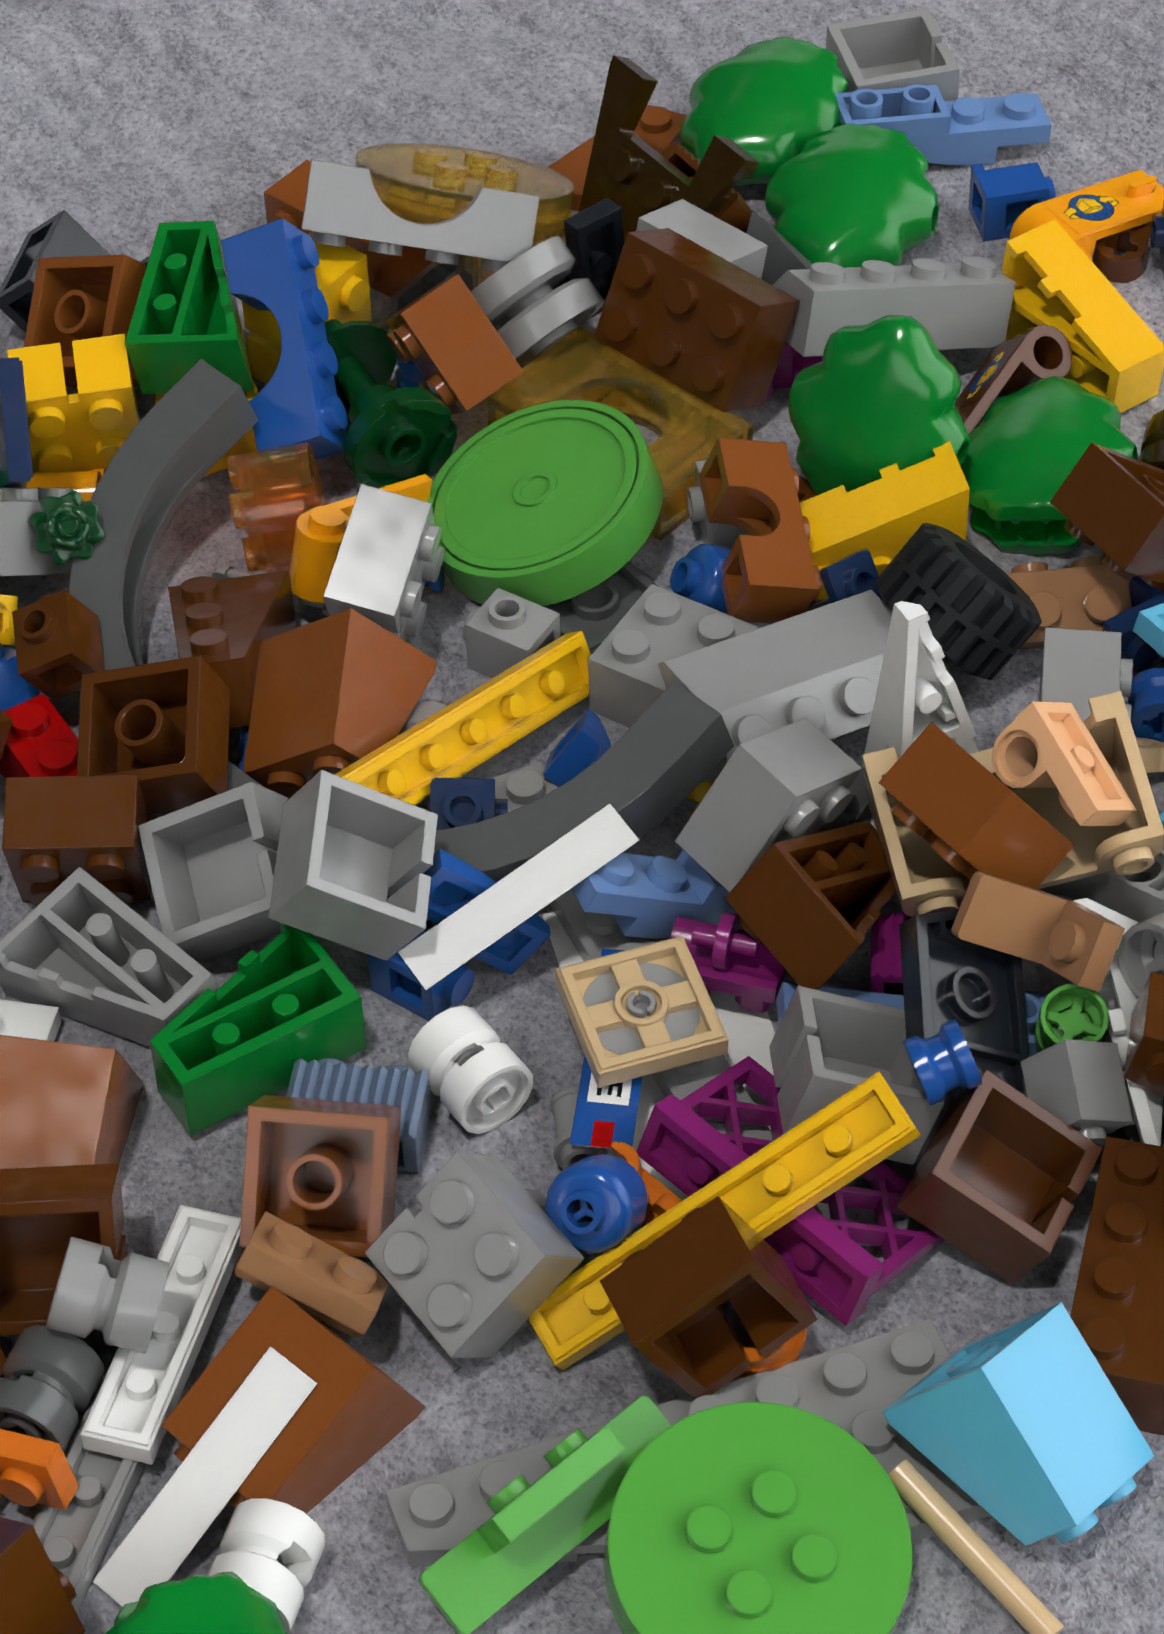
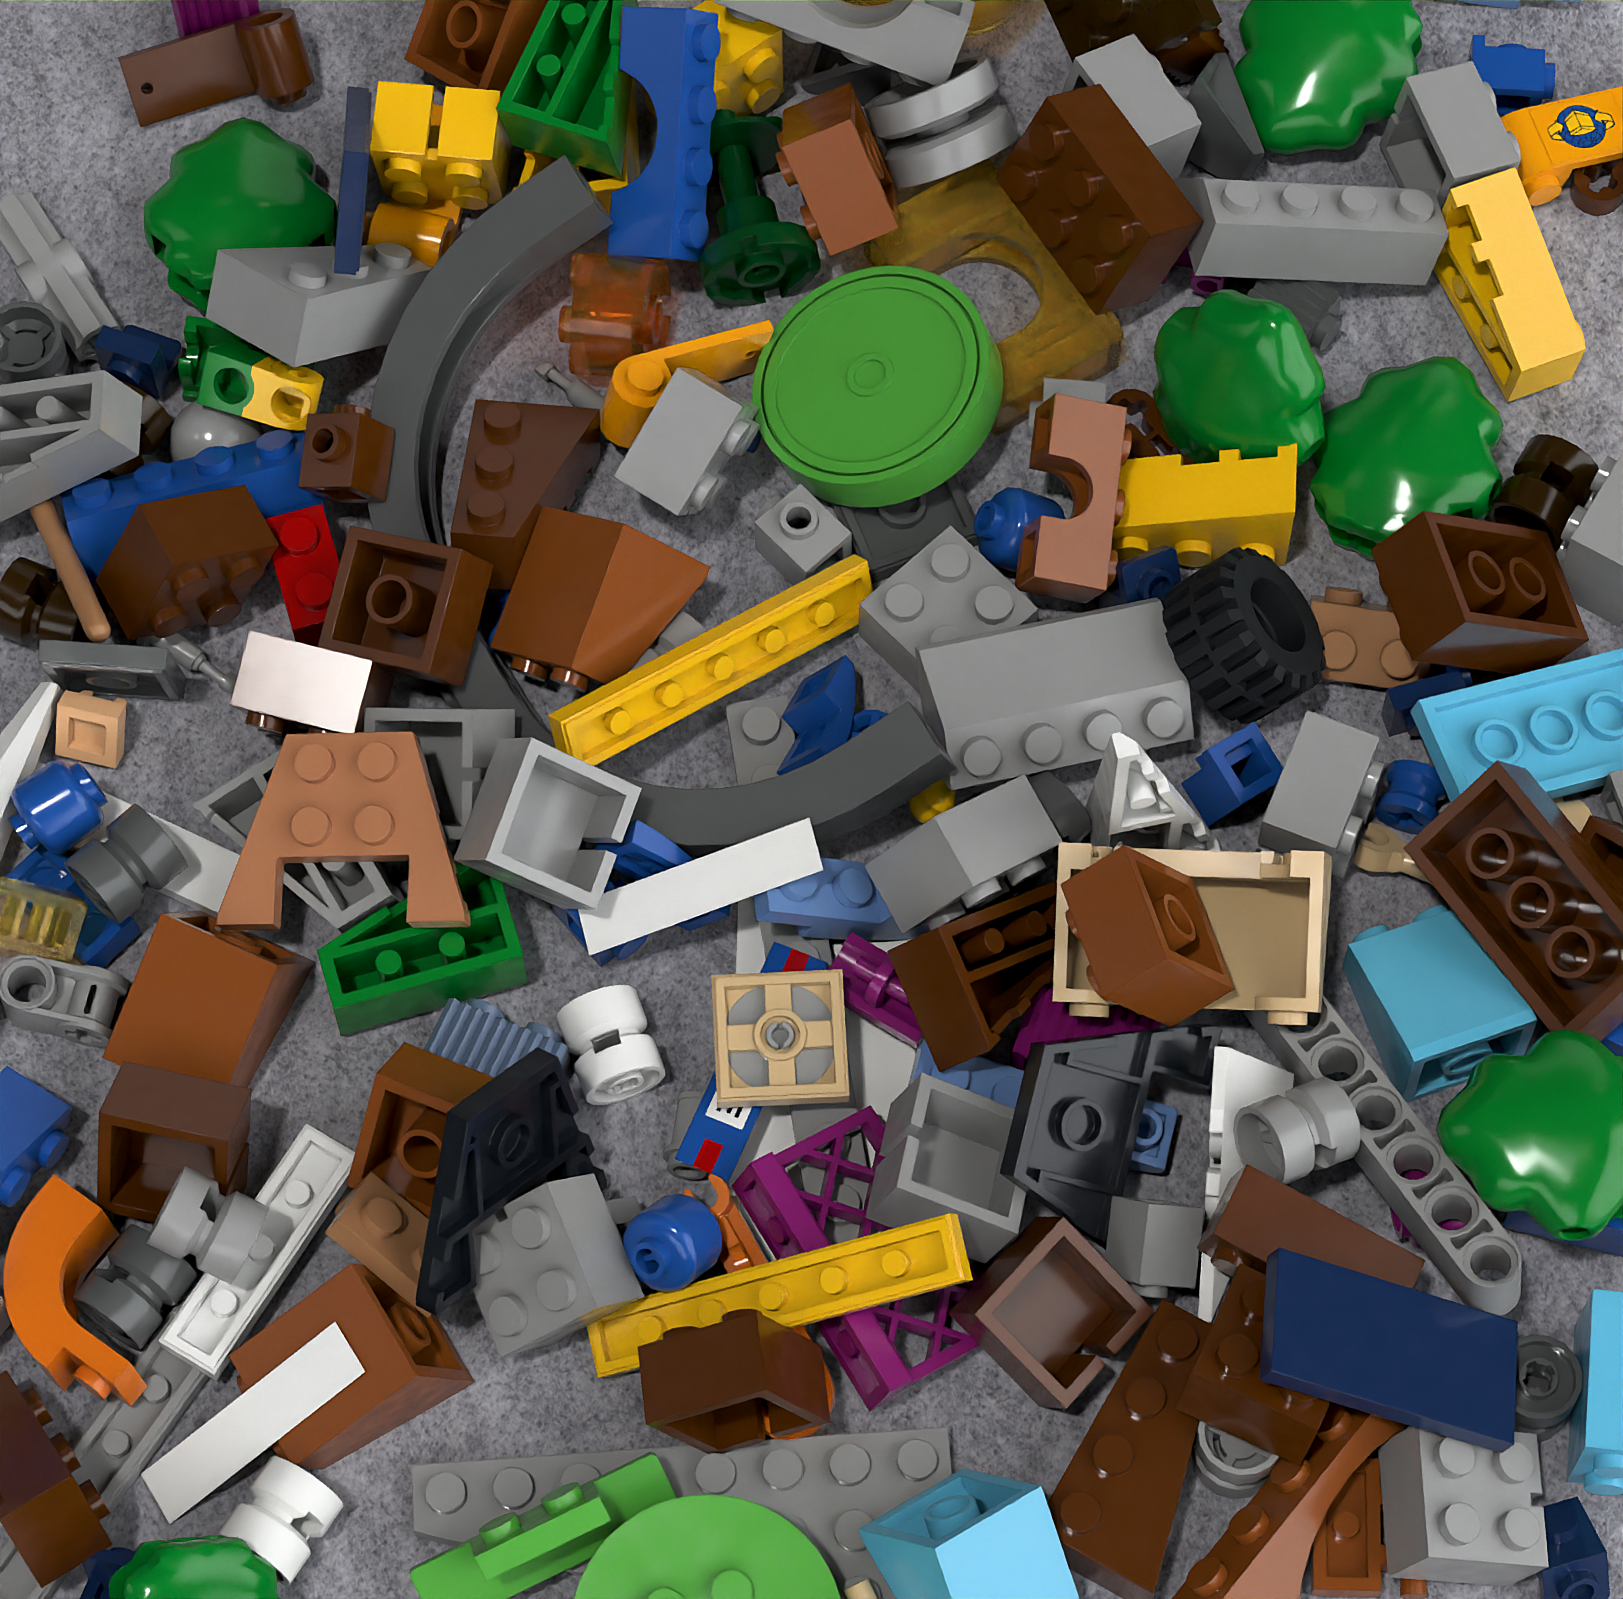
camera: 15 degrees right, 20 degrees up
(66, 527) = (386, 320): dark green plant -> none
(143, 905) = (346, 803): none -> nougat wing
(395, 1140) = (489, 1155): none -> black wing
(464, 801) = (689, 755): dark blue bracket -> none
(596, 244) = (1028, 63): black plate -> none
(942, 1062) = (1019, 1205): blue wheel -> none
(993, 703) = (1232, 774): none -> blue brick
(994, 214) = (1447, 132): none -> light grey piece
(1013, 366) = (1421, 317): reddish brown door -> none
(1038, 929) = (1168, 1071): medium nougat bracket -> none
(1065, 761) = (1250, 899): light nougat plate -> none
(1075, 1013) = (1169, 1176): bright green wheel -> none

